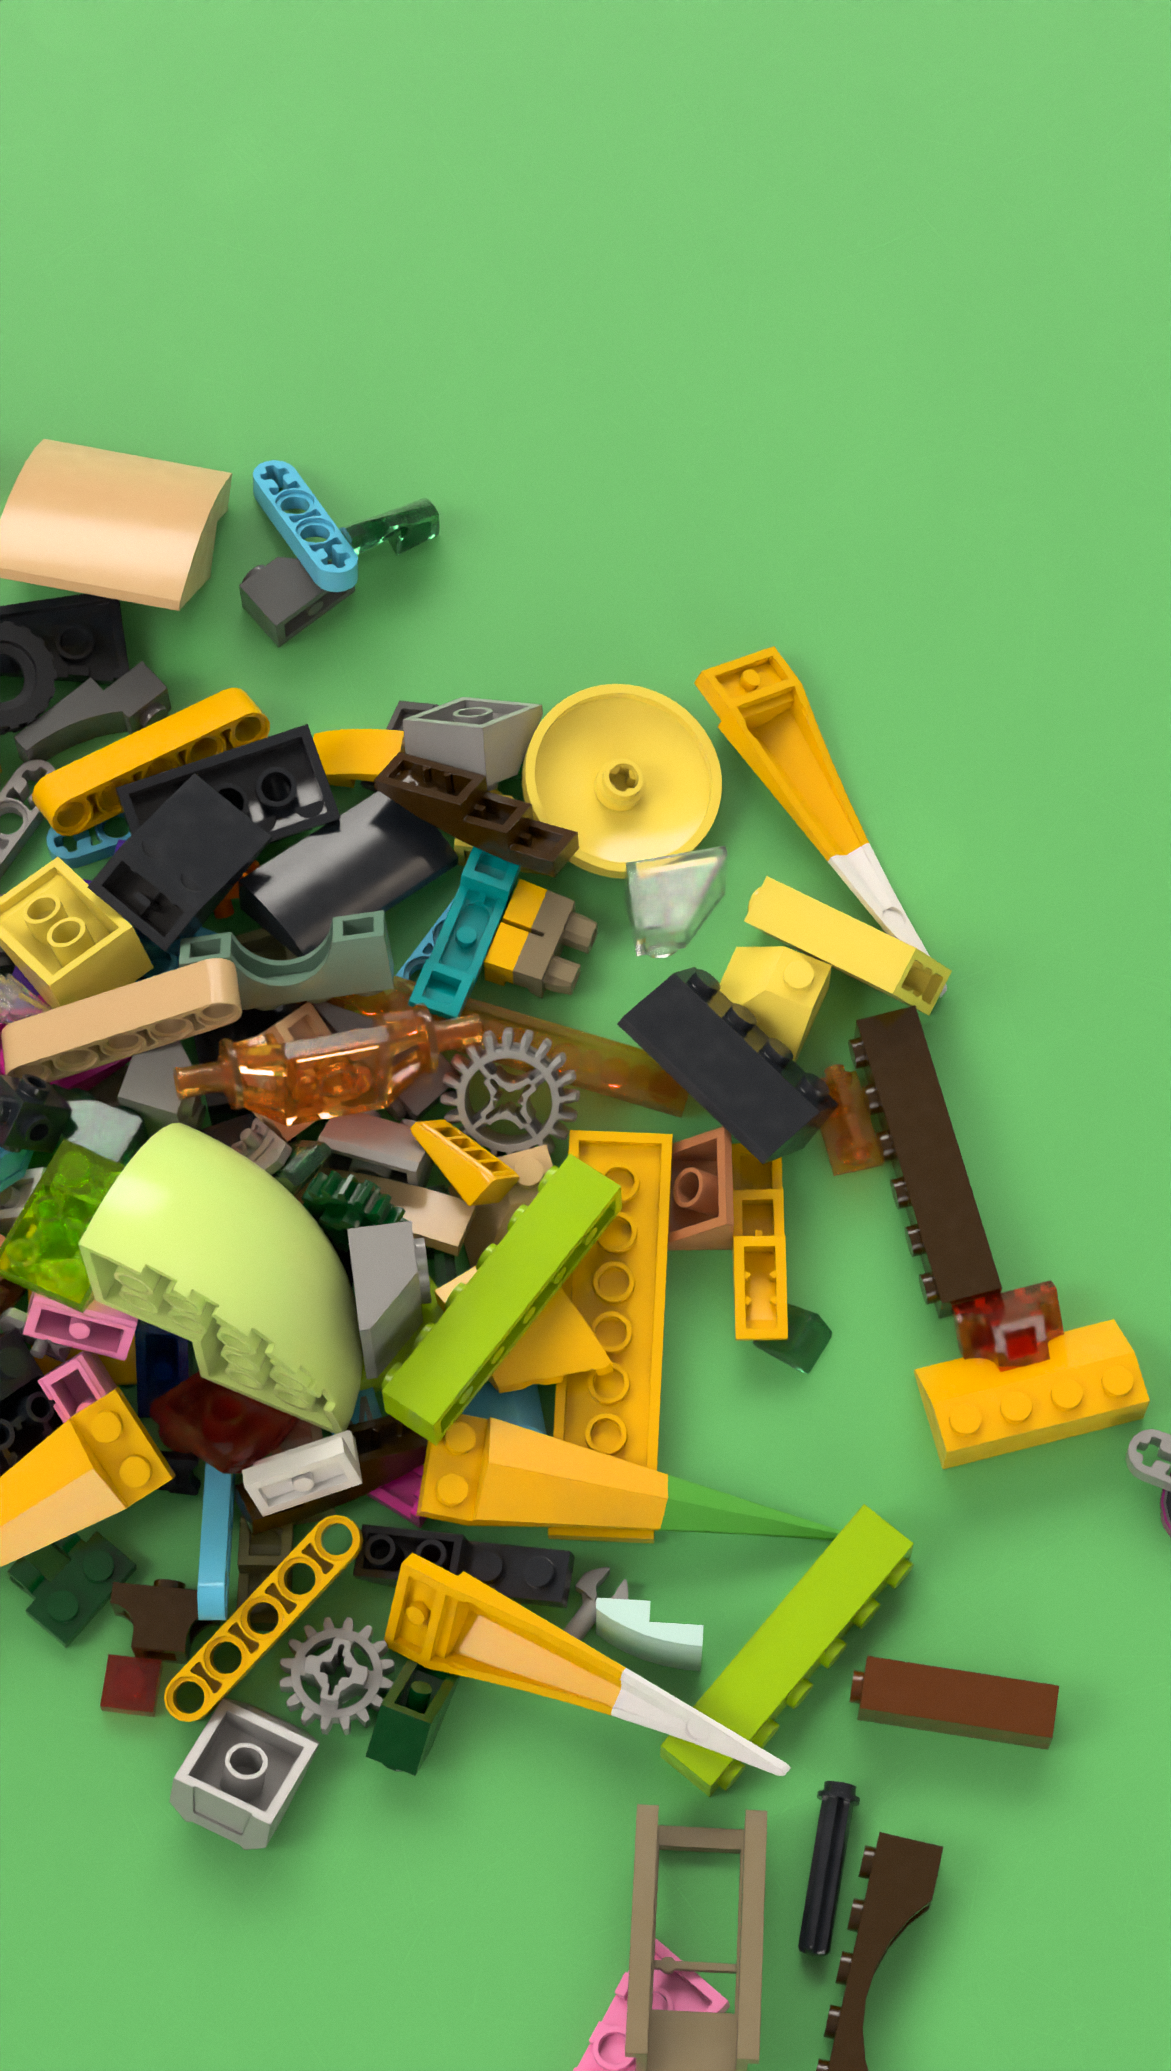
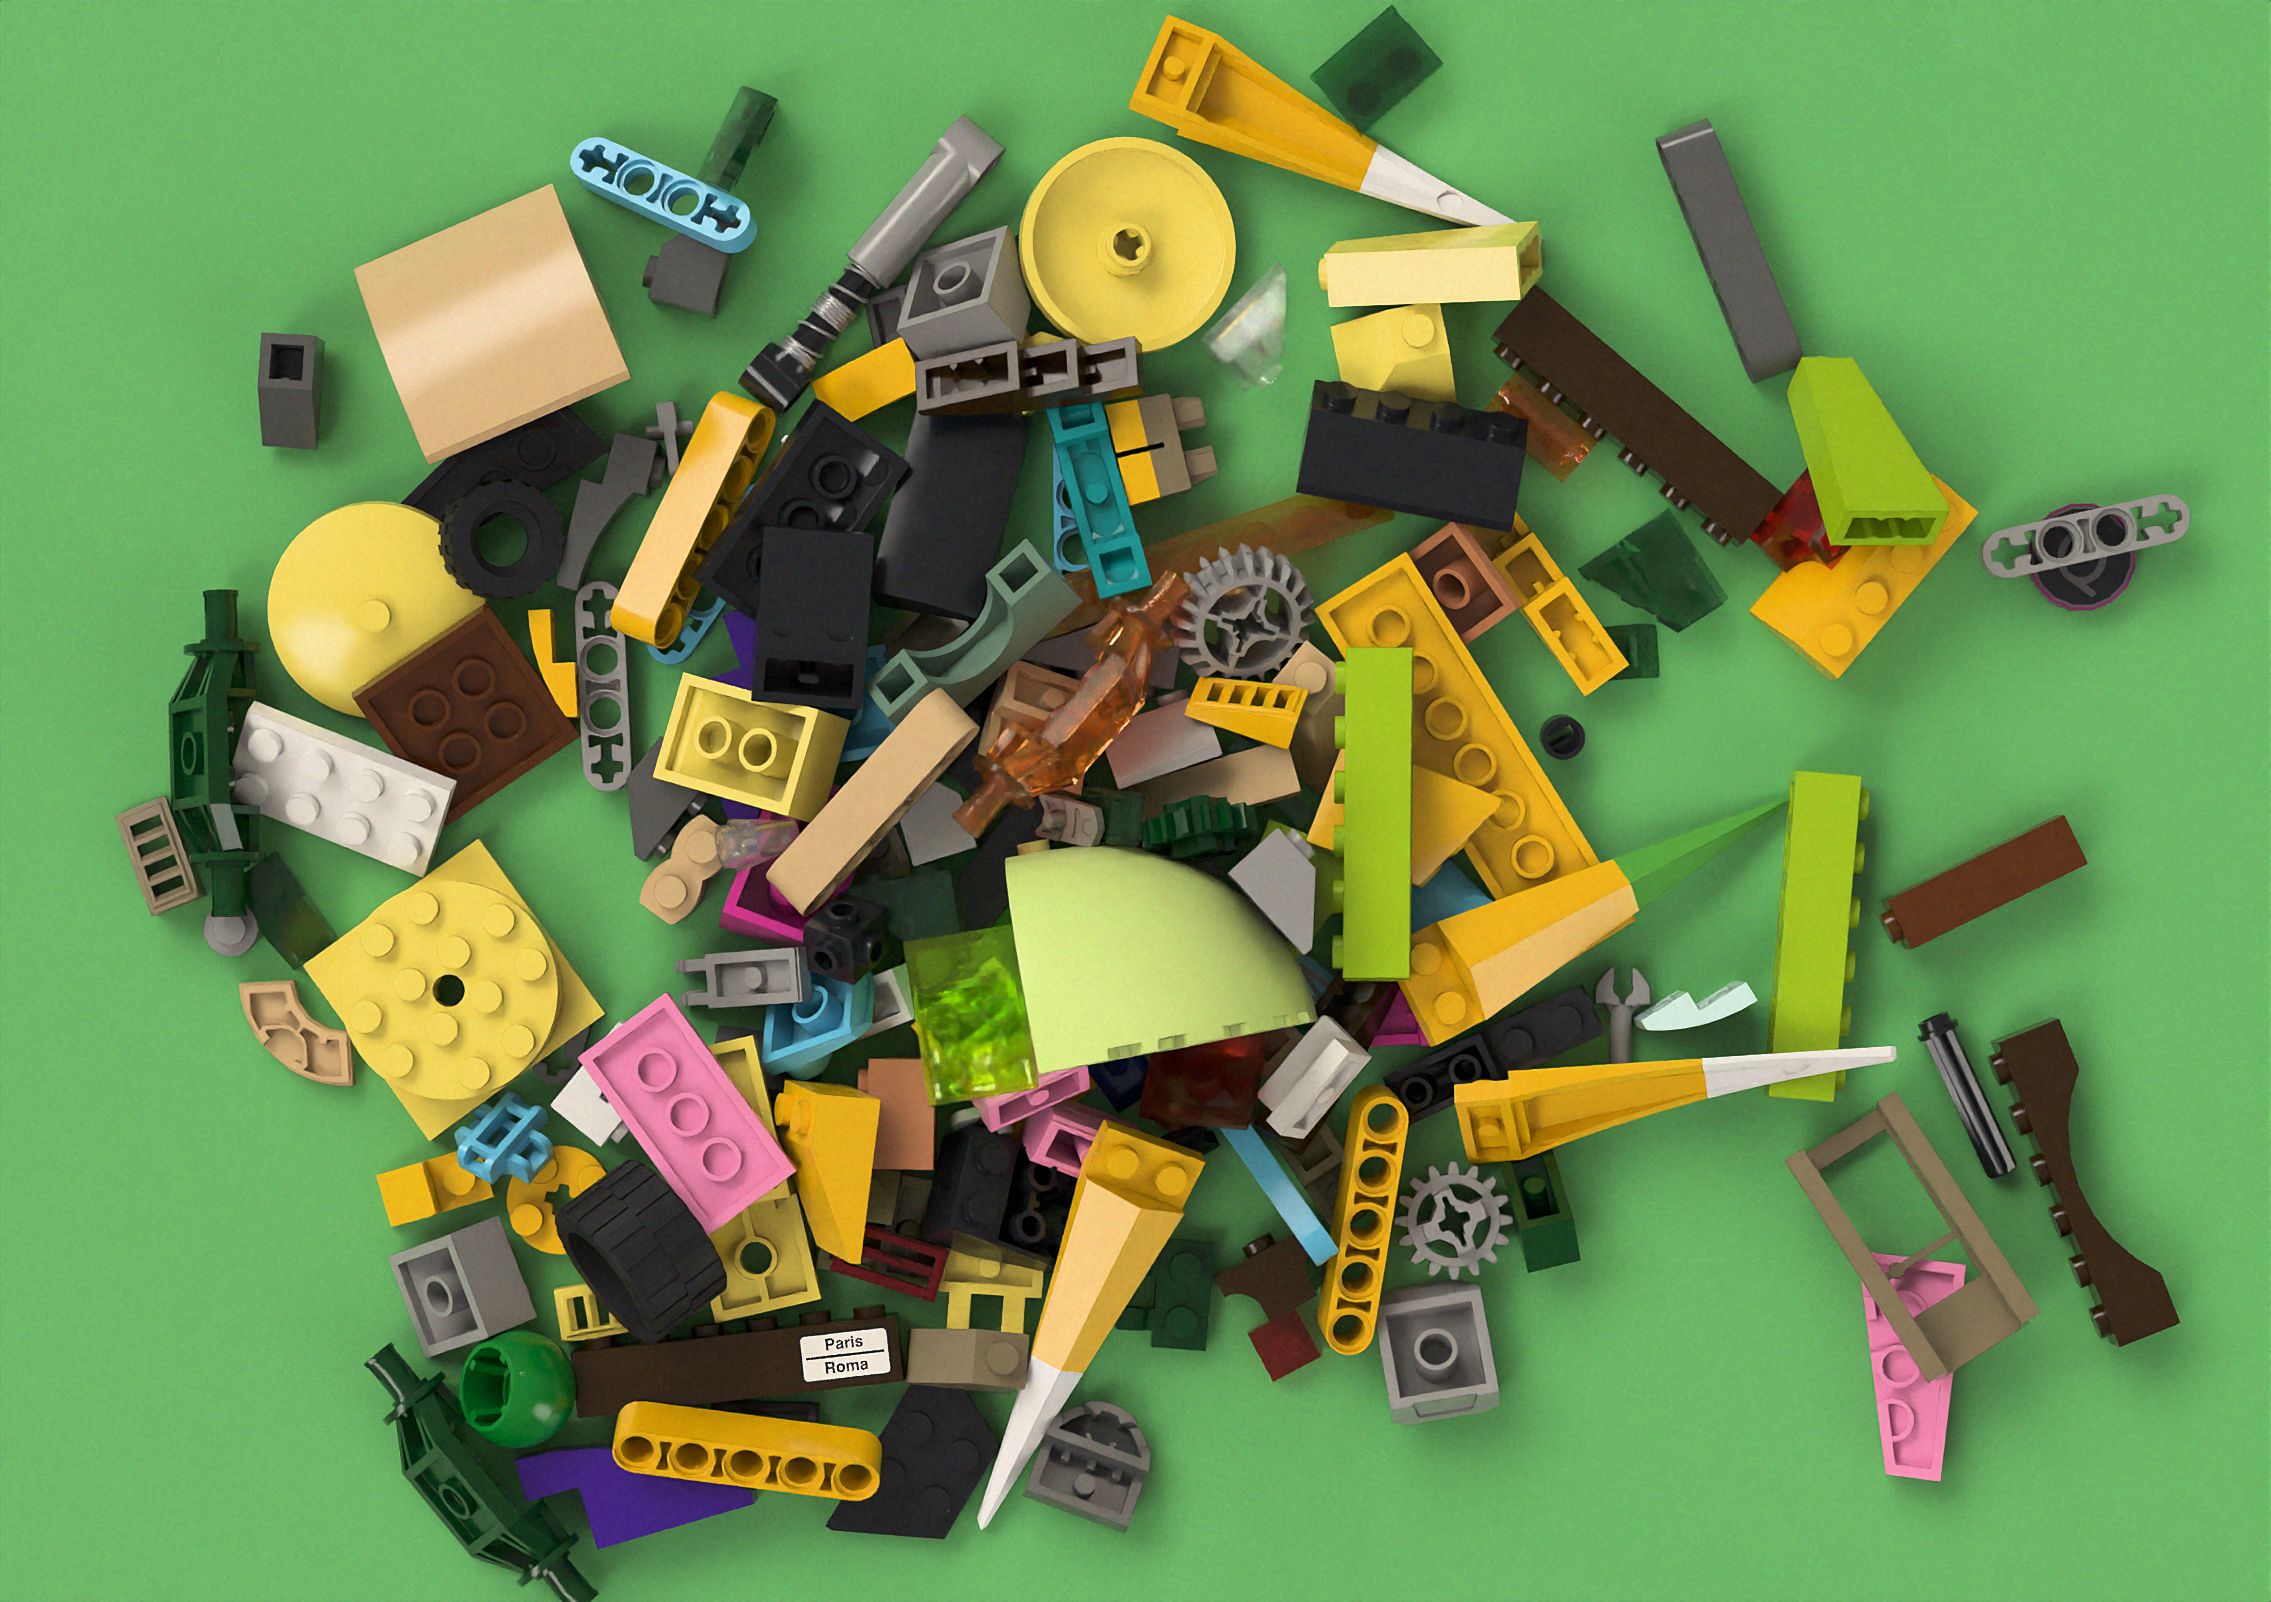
camera: 35 degrees left, 20 degrees up
(185, 691) = (670, 429): none -> light grey piece
(541, 648) = (877, 259): none -> piece
(696, 1349) = (1567, 745): none -> black hinge
(862, 1292) = (1659, 572): none -> clear green slope
(904, 786) = (1376, 70): none -> clear green plate
(1080, 1295) = (1860, 461): none -> lime slope
(1087, 1090) = (1729, 250): none -> dark grey beam

